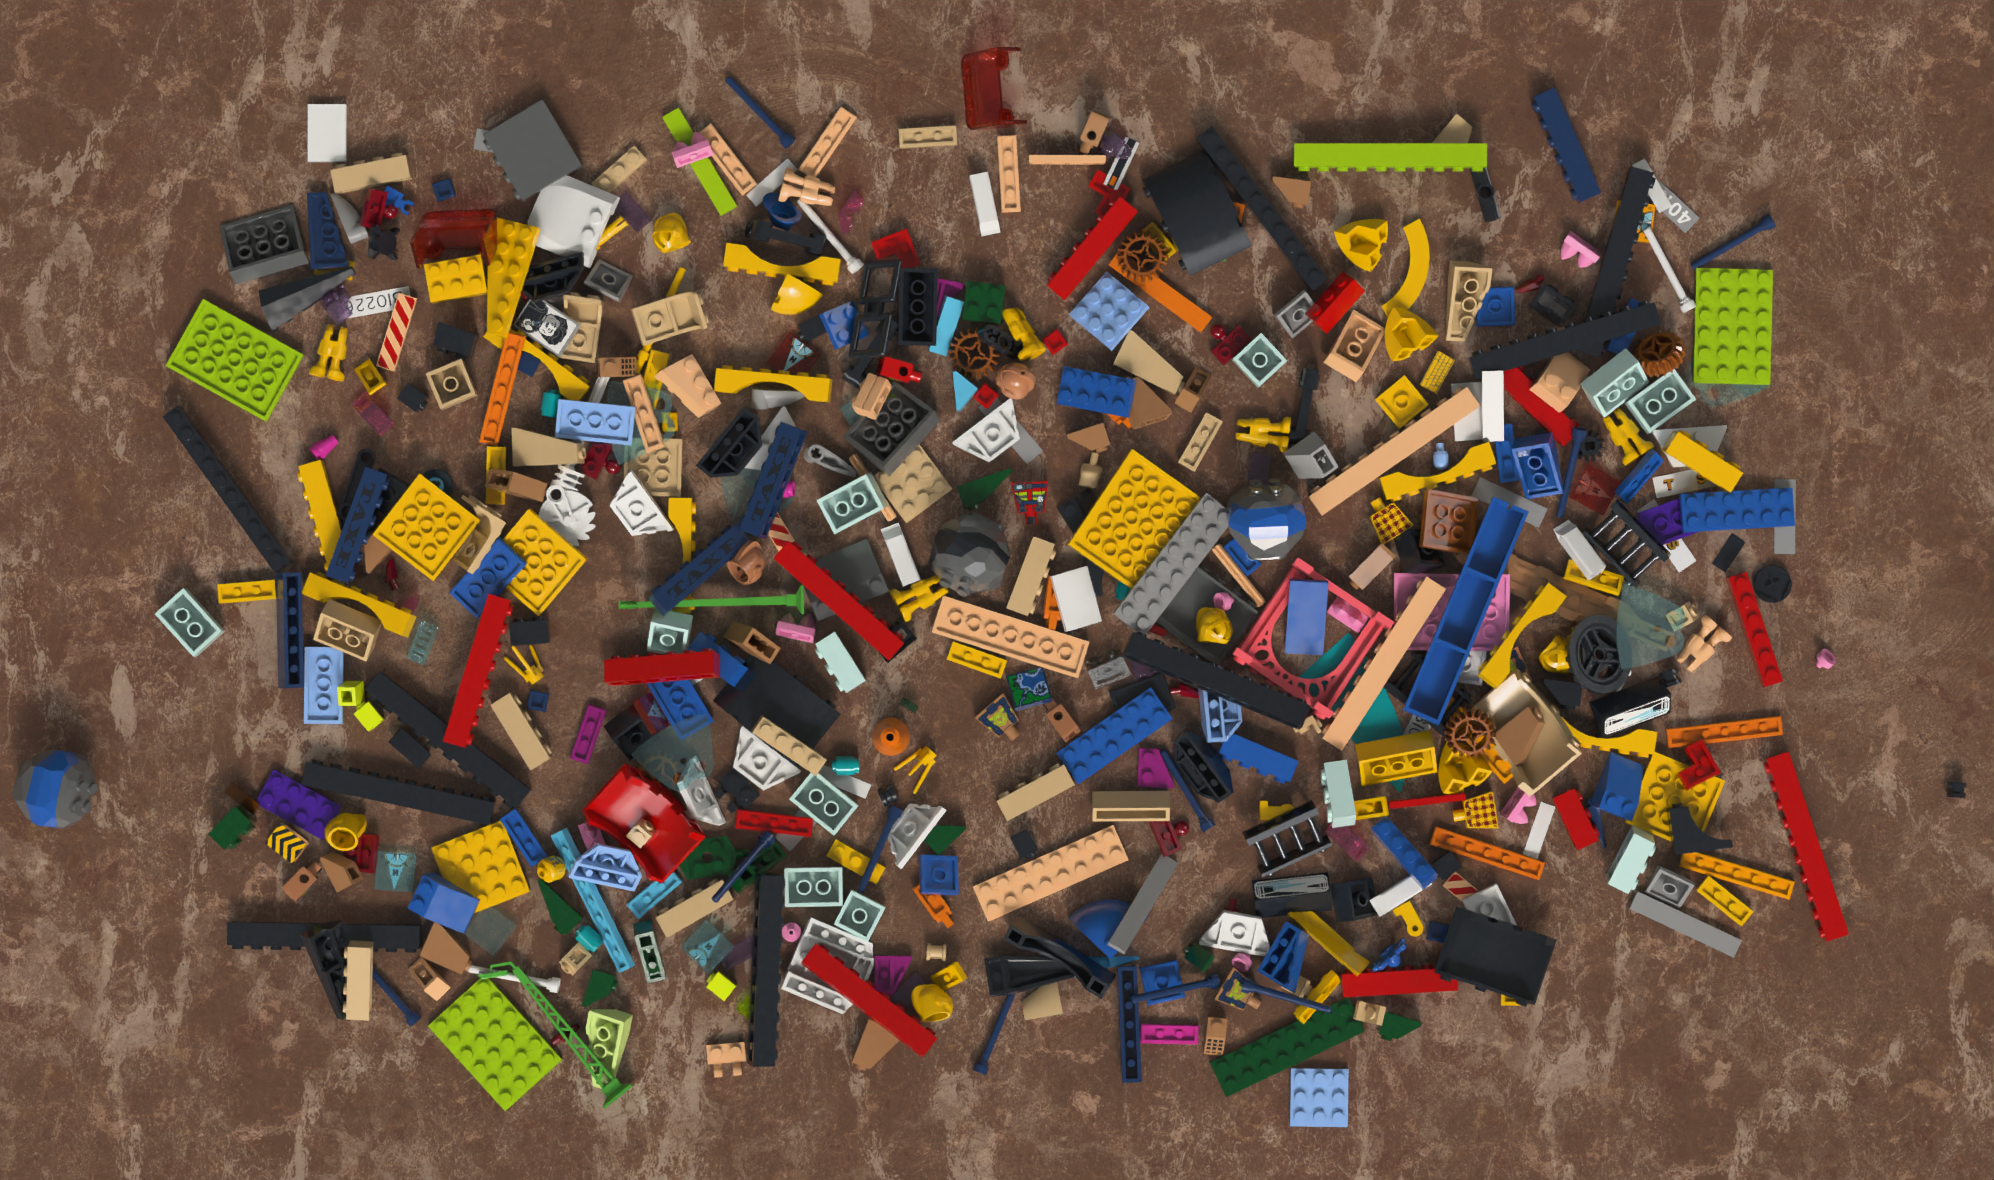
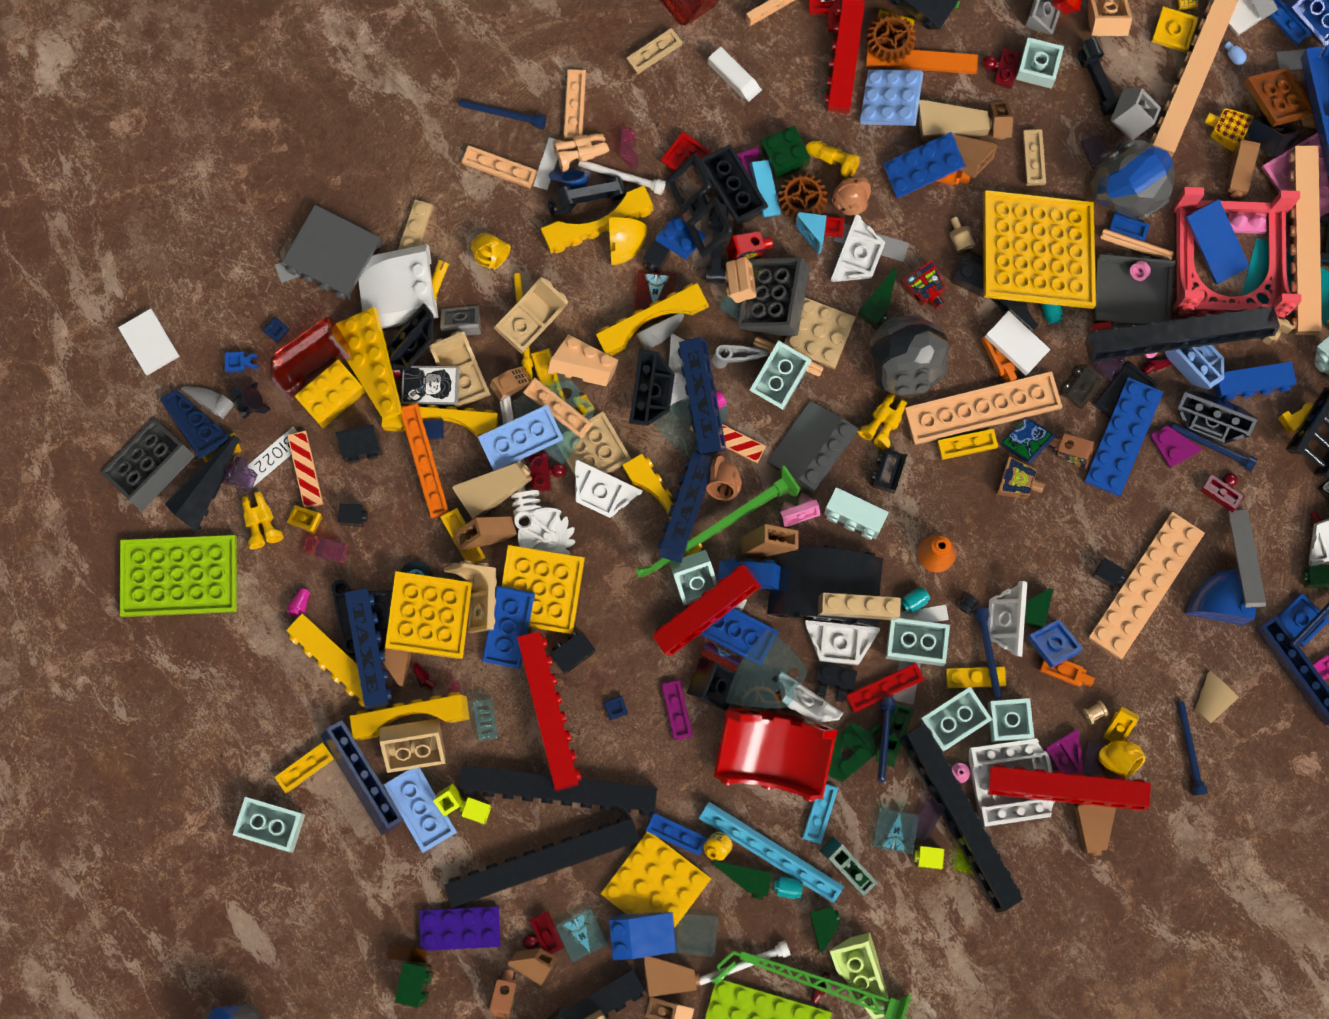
camera: 30 degrees left, 10 degrees down
(227, 489) = (235, 688): black brick -> none
(287, 842) = (470, 968): piece -> none
(345, 830) = (515, 925): yellow helmet -> none
(371, 174) = (206, 351): tan brick -> none
(375, 208) = (225, 376): dark red plate -> none
(409, 748) = (528, 817): black slope -> none
(451, 384) = (378, 482): tan brick -> none
(521, 731) = (617, 742): tan brick -> none
(532, 673) = (597, 685): yellow plant -> none
(550, 403) = (473, 449): teal brick -> none
(575, 959) = (787, 914): tan bracket -> none
(591, 835) = (739, 799): bright pink tile -> none
(607, 867) = (767, 812): light blue wedge -> none
(632, 212) = (446, 253): tile -> none
(641, 833) = (777, 765): tan bracket -> none
(692, 909) = (862, 805): tan brick -> none
(698, 150) = (470, 170): bright pink tile -> none
(703, 168) = (478, 181): lime tile -> none
(726, 1053) = (971, 916): light nougat plate -> none
(838, 600) = (823, 459): red brick -> none
(900, 554) = (848, 396): white piece -> none
(906, 704) = (935, 517): clear green tile -> none
(925, 756) = (977, 552): yellow plant -> none
(993, 342) = (809, 171): black beam -> none
(1008, 173) = (738, 42): light nougat tile -> none
(1021, 973) = (1180, 685): black plate -> none
(1030, 576) = (967, 348): tan brick -> none
(1030, 937) = (1170, 648): black arch -> none
(1034, 793) = (1089, 524): tan brick -> none
(1054, 342) = (863, 149): red tile -> none
(1091, 438) = (943, 207): medium nougat slope -> none
(1130, 806) = (1177, 485): tan brick -> none
(1173, 565) = (1081, 264): light grey plate -> none
(1213, 626) = (1146, 295): yellow helmet -> none
(1259, 432) = (1077, 118): yellow piece -> none
(1399, 484) = (1218, 92): yellow arch -> none

